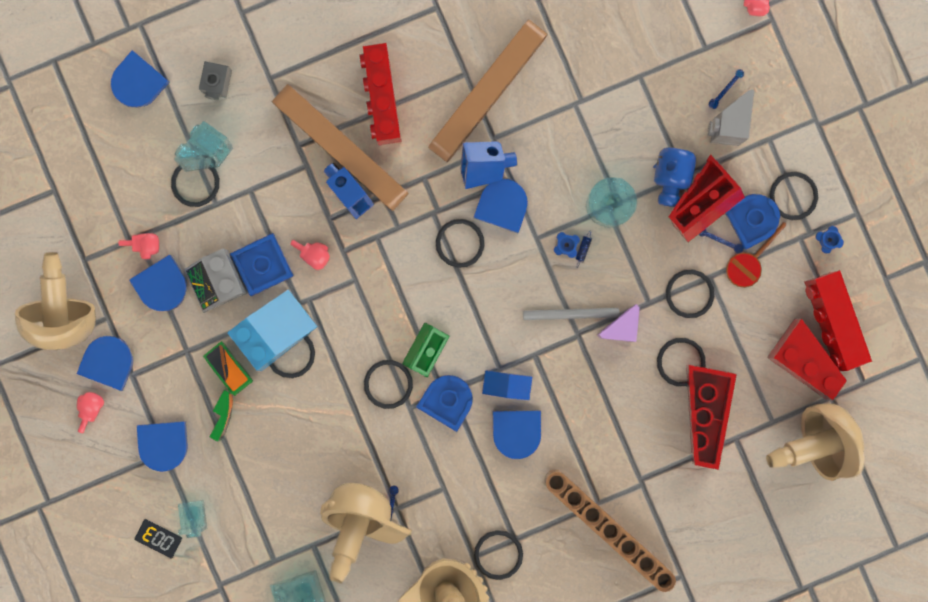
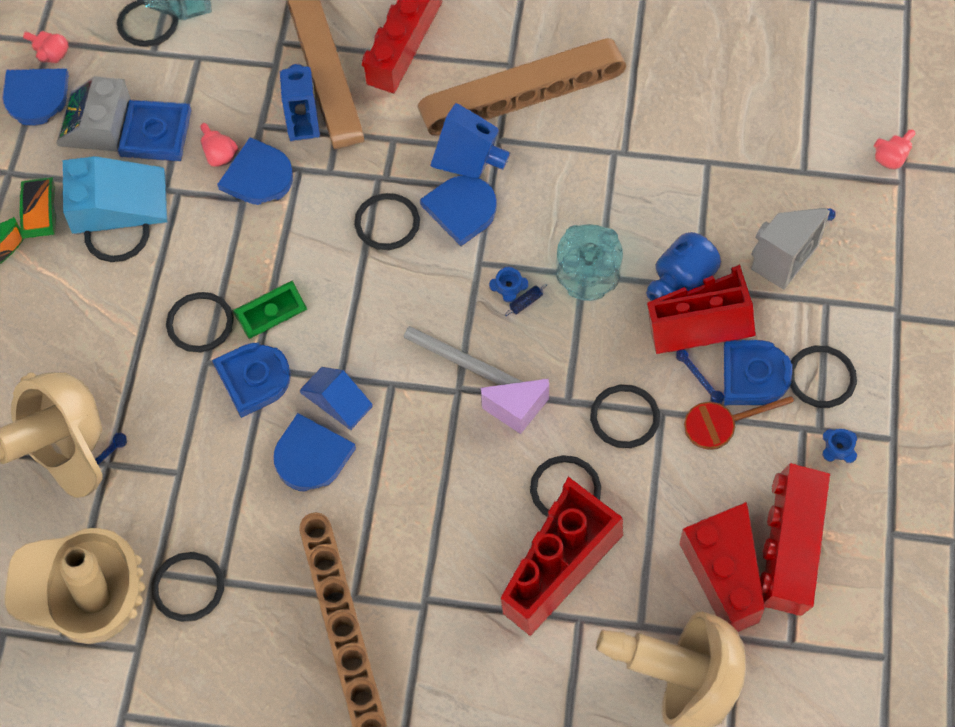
camera: 35 degrees right, 25 degrees down
(354, 258) = (258, 174): none -> blue tile

